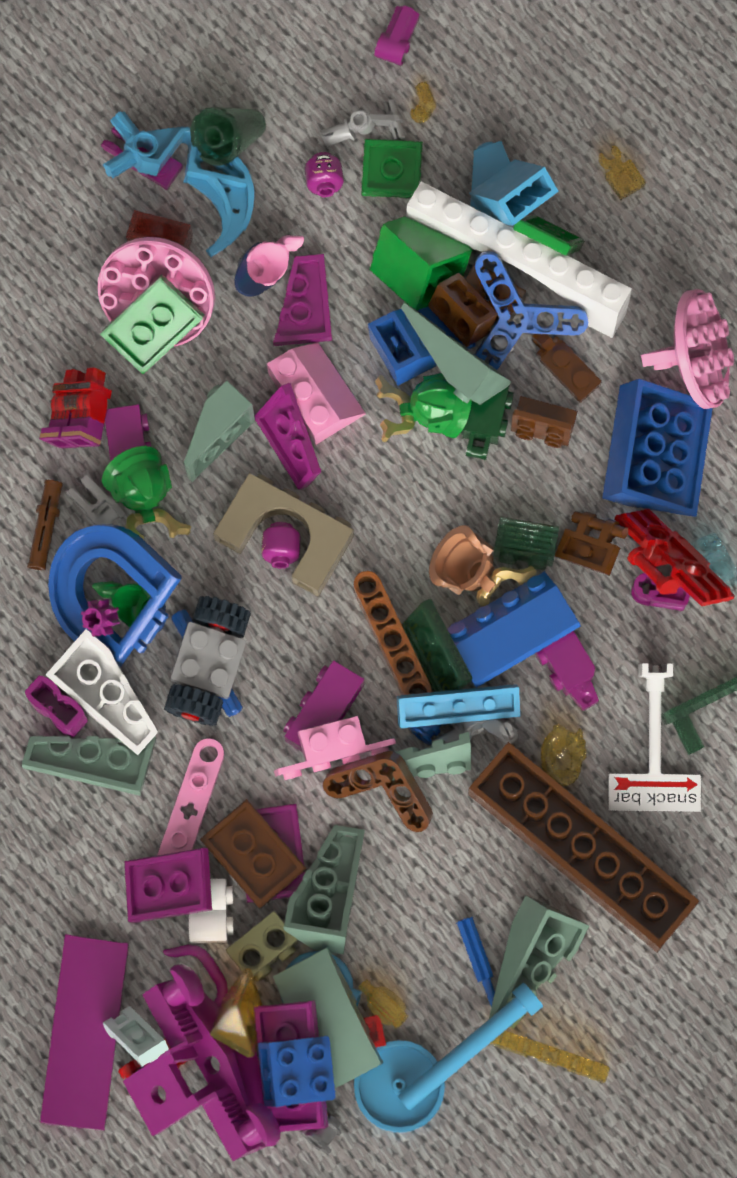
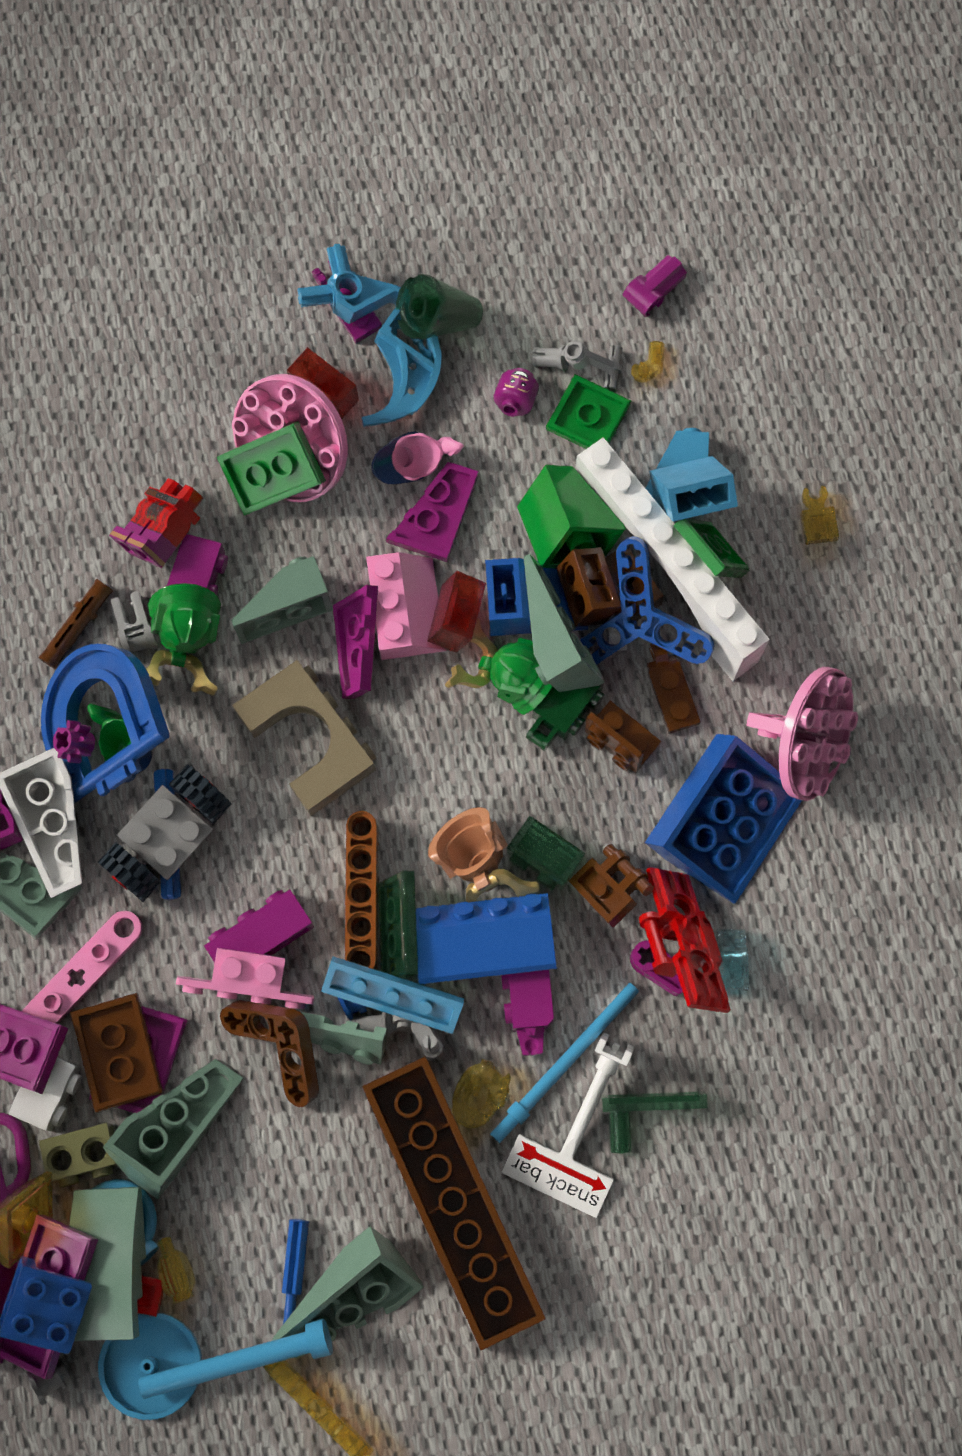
camera: 25 degrees right, 0 degrees up
(280, 545) = (296, 746): magenta head -> none
(362, 377) = (456, 611): none -> clear red brick
(601, 755) = (519, 1111): none -> dark azure bar

